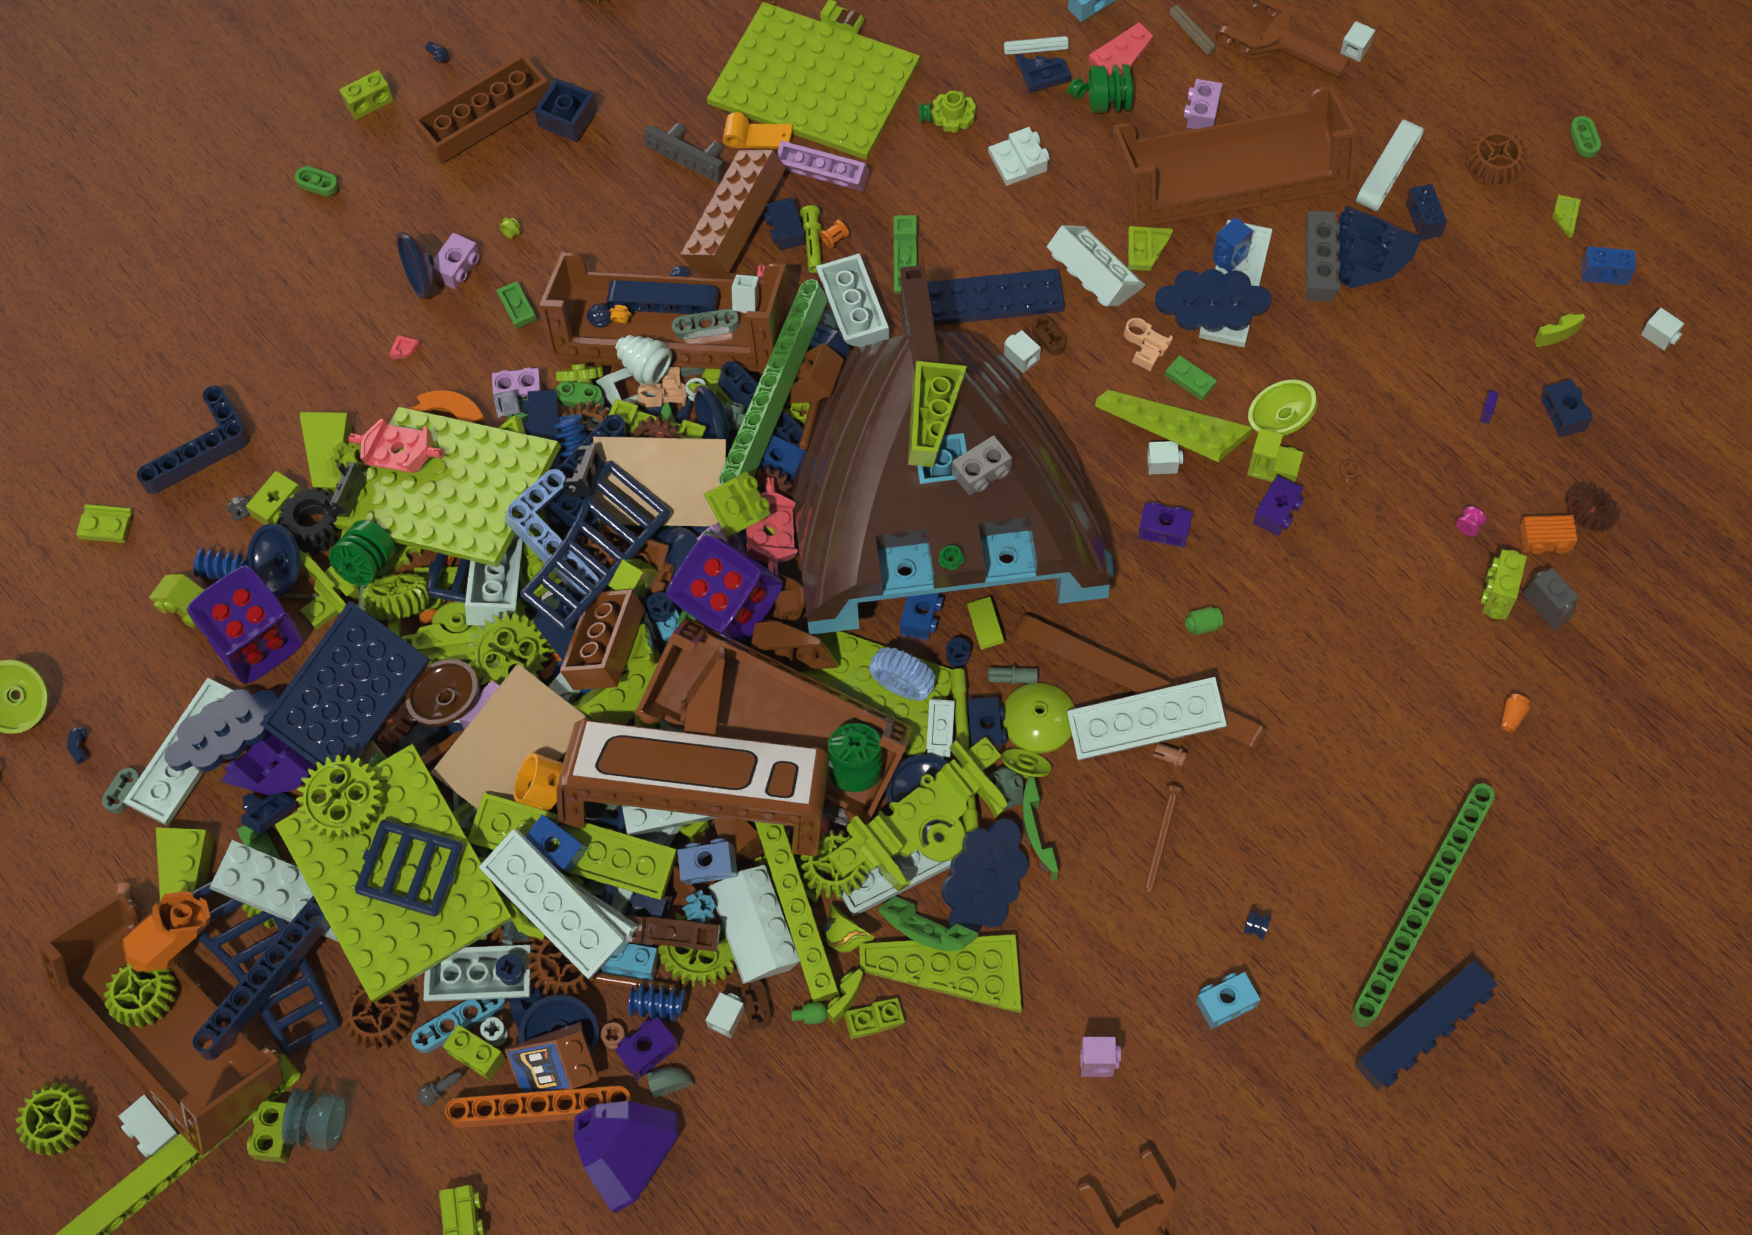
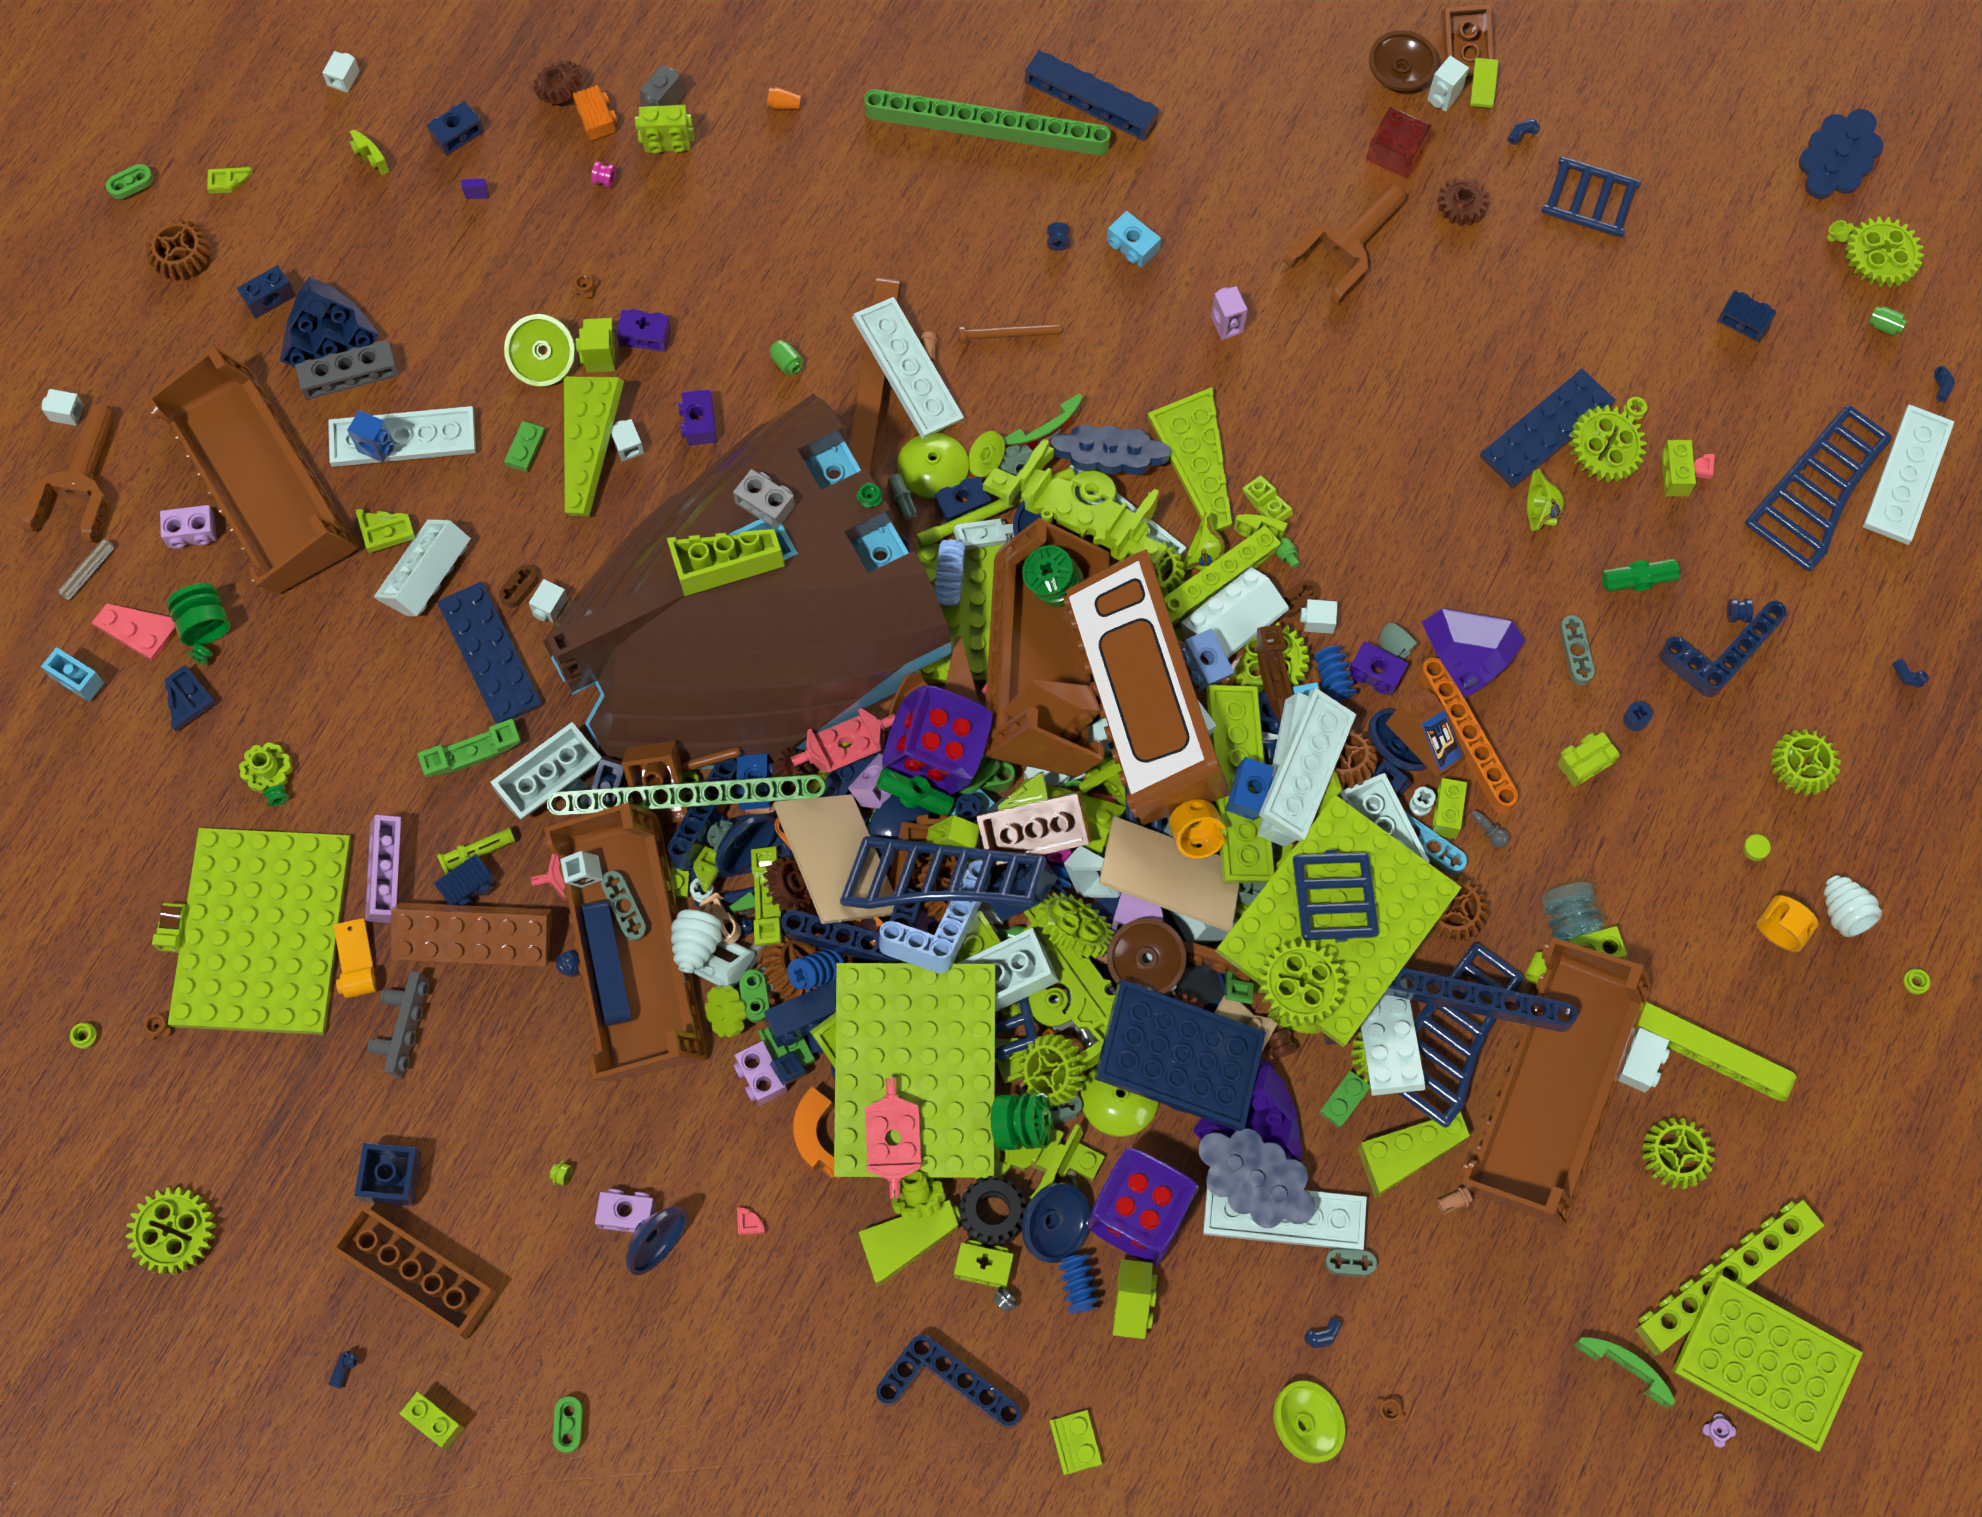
camera: 115 degrees left, 5 degrees up
(127, 989) = (1528, 1117): lime gear -> none
(166, 931) = (1480, 1111): orange brick -> none
(266, 812) = (1314, 1103): dark blue hinge -> none
(346, 491) = (959, 1174): hinge -> none
(513, 975) = (1375, 797): dark blue wheel -> none
(516, 305) = (658, 1122): bright green plate -> none
(586, 472) = (868, 913): black hinge -> none
(599, 315) = (645, 1024): dark blue piece -> none
(604, 1035) = (1373, 699): nougat bush -> none
(620, 314) = (638, 1000): light orange plate -> none
(699, 907) = (1244, 660): medium azure gear -> none
(737, 504) = (841, 765): lime plate -> none
(834, 233) = (462, 830): orange bush -> none
(924, 931) = (1177, 477): bright green slope -> none
(1019, 156) = (305, 684): light aqua plate -> none
(1036, 45) = (150, 716): light aqua axle -> none
(1152, 344) = (499, 487): light nougat piece -> none
(1212, 300) = (434, 445): dark blue plate -> none
(1389, 165) = (201, 336): light aqua beam -> none
(1608, 265) = (283, 128): blue brick -> none

